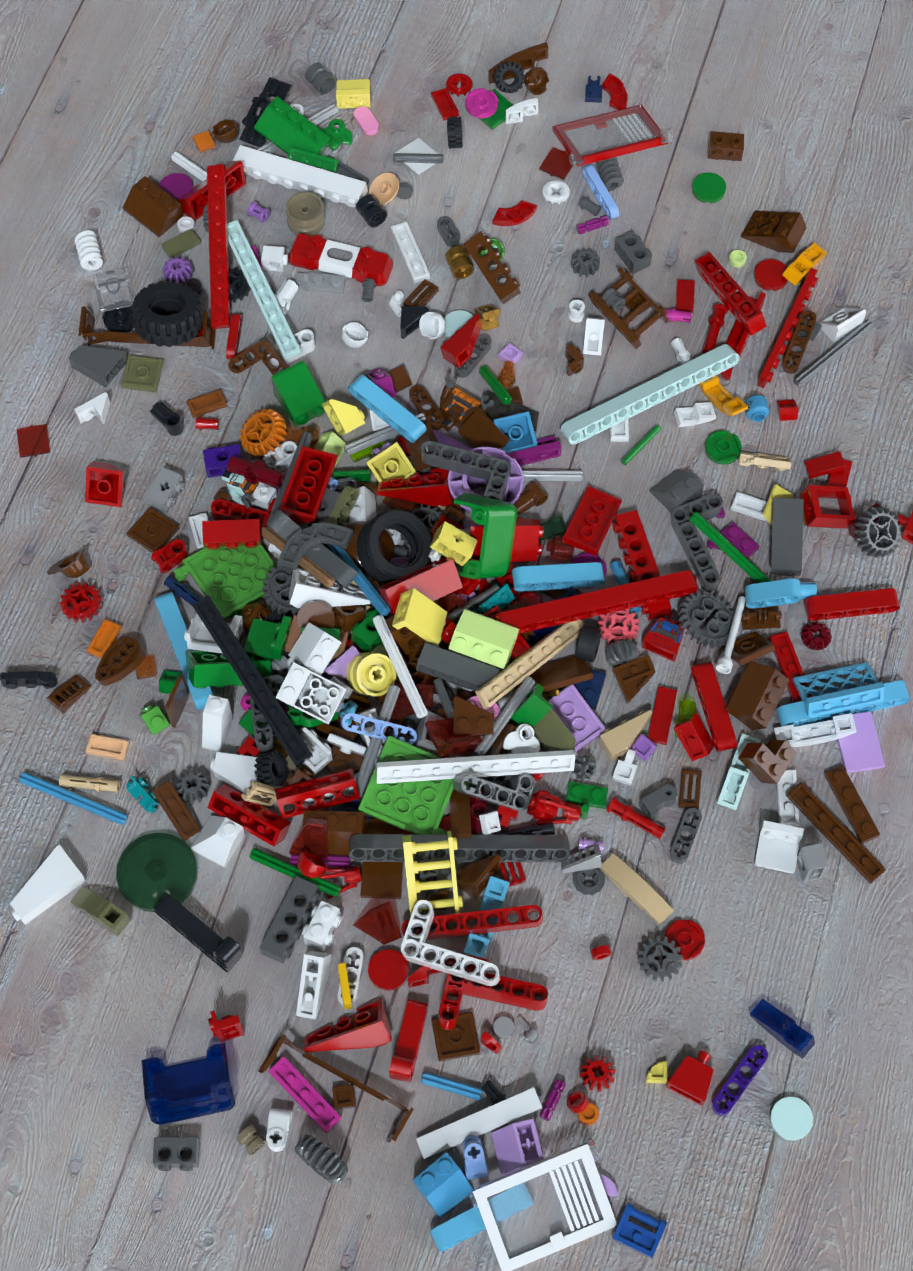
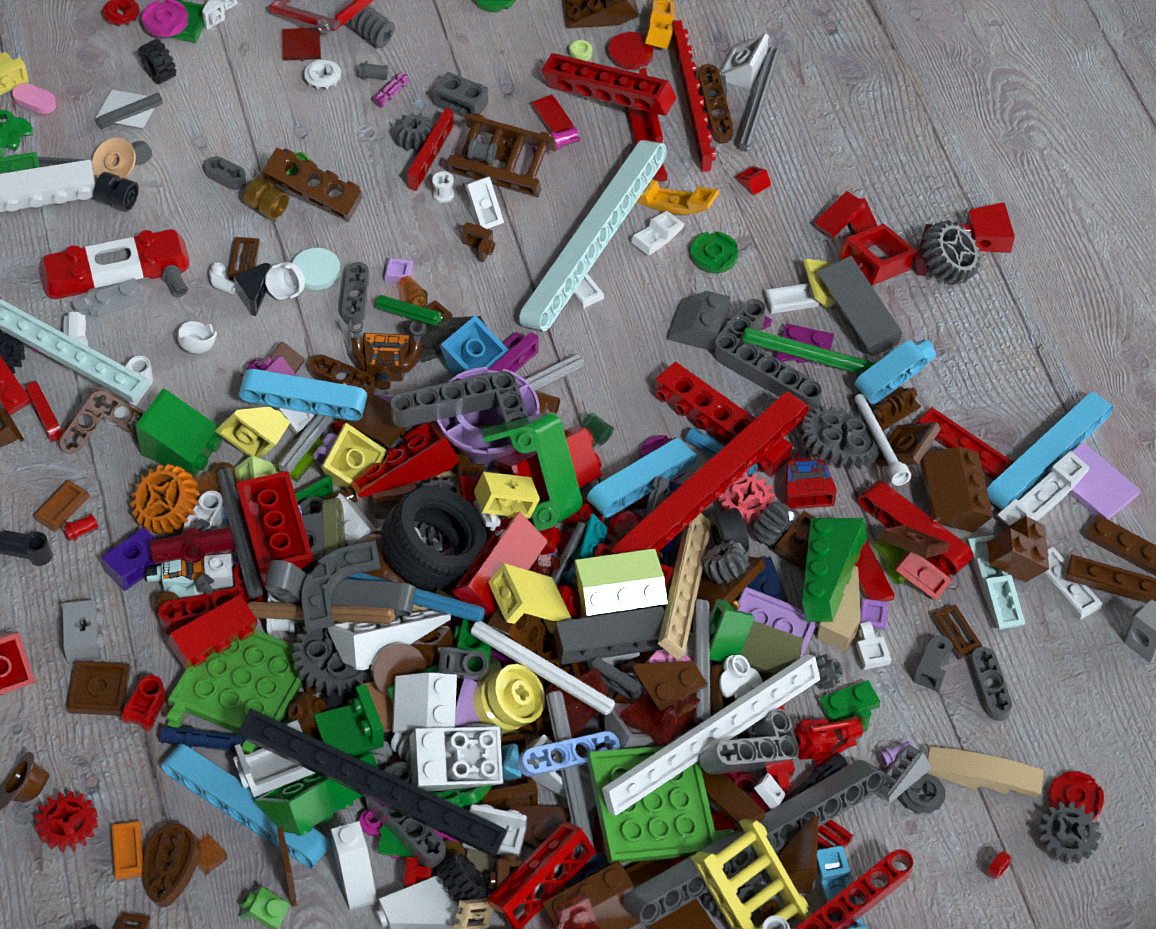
camera: 35 degrees left, 10 degrees down
(168, 681) = (252, 854): green slope -> none
(196, 526) = (161, 656): white tile -> none
(274, 258) = (31, 298): white brick -> none
(305, 213) = (36, 230): dark tan wheel -> none
(347, 746) = (536, 800): white plate -> none
(349, 635) = (459, 663): none -> dark grey piece
(410, 252) = (195, 216): white tile -> none
(444, 103) = (118, 39): red tile -> none
(462, 343) = (336, 287): red slope -> none
(482, 431) = (434, 365): reddish brown piece -> none
(488, 316) = (342, 241): pearl gold slope -> none
(514, 215) = (291, 121): red tile -> none
(558, 593) = (657, 495): none -> dark grey axle
(559, 550) = (618, 448): clear red head -> none
(568, 661) = (725, 562): none -> dark grey gear
(587, 280) = (430, 149): none -> red tile
(592, 520) = (633, 399): red plate -> none
(600, 191) = (375, 51): light blue beam -> none
(627, 813) = (911, 695): red pin -> none
(634, 697) = (830, 559): none -> green wedge
(641, 444) = (621, 294): green bar -> none
(681, 353) = (595, 176): white pin -> none
(697, 716) = (914, 541): none -> copper tile
(716, 323) = (609, 126): red pin -> none
(757, 408) = (728, 191): dark azure head -> none
(764, 460) = (771, 242): tan hinge -> none
(778, 846) = (1098, 636): white bracket -> none
(818, 643) = (955, 398): dark red gear -> none
(840, 698) = (1047, 442): medium azure fence -> none
(852, 604) = (977, 343): red beam -> none

